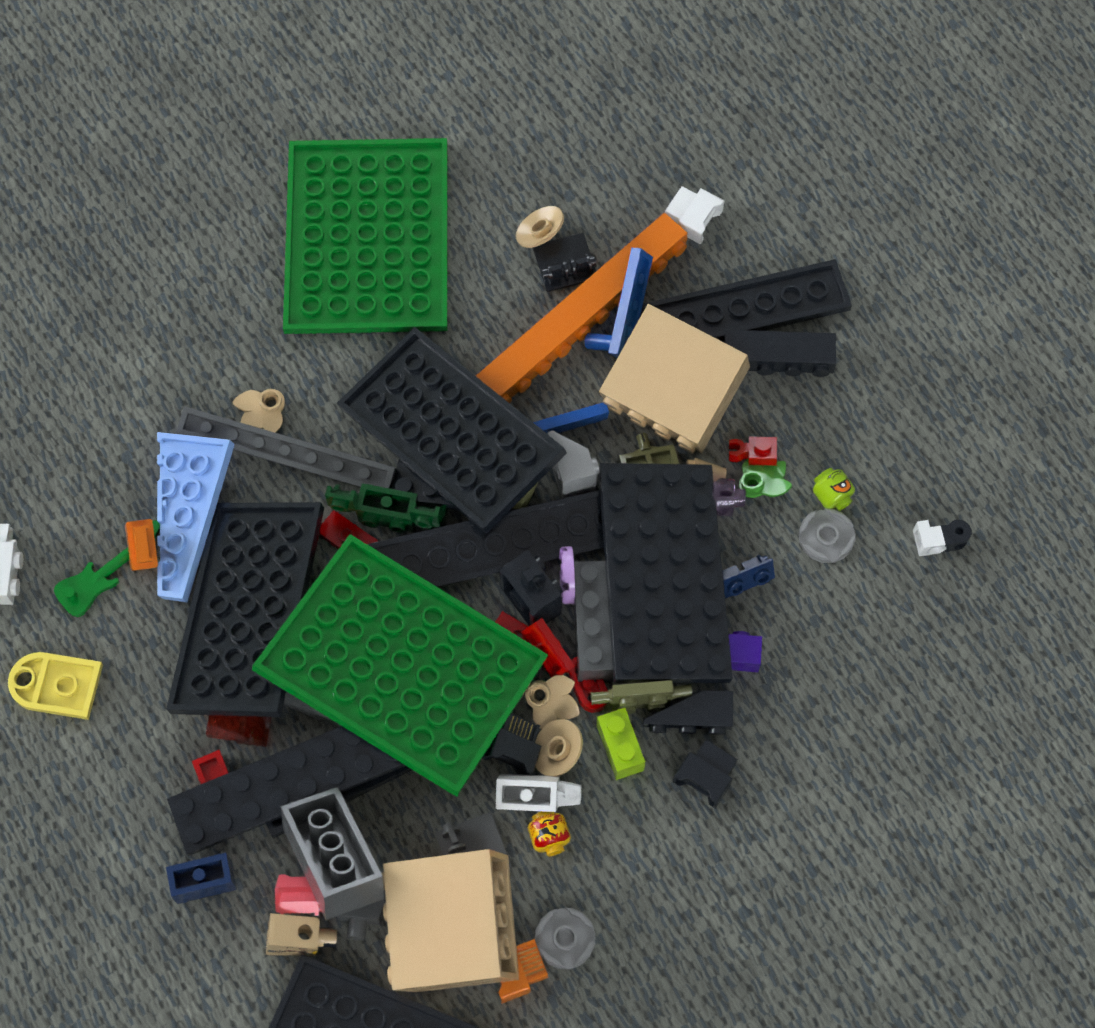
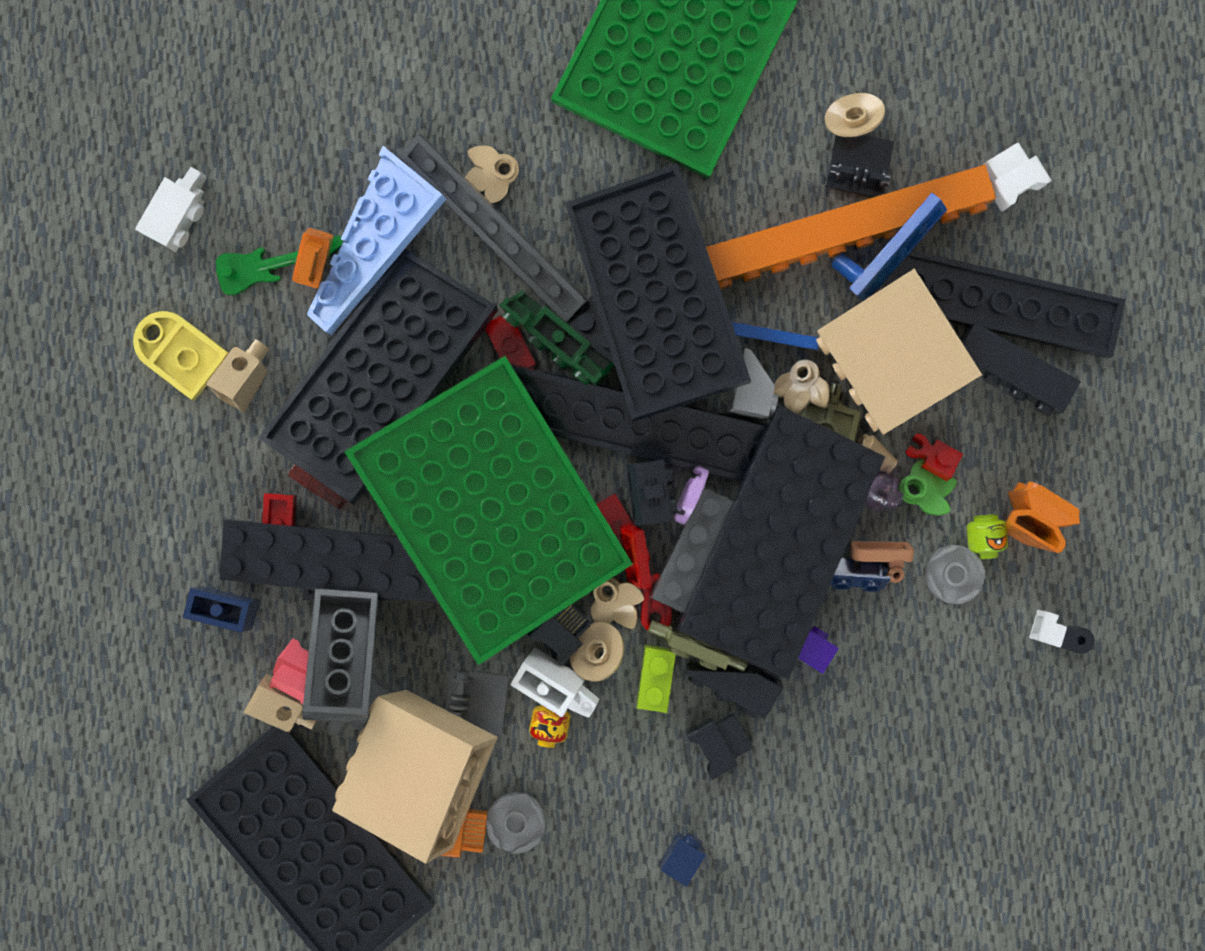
camera: 25 degrees right, 20 degrees up
(123, 673) = (240, 375): none -> tan torso
(617, 448) = (801, 391): none -> tan plate
(730, 887) = (683, 858): none -> dark blue brick
(767, 542) = (884, 551): none -> nougat piece
(864, 449) = (1038, 516): none -> orange piece

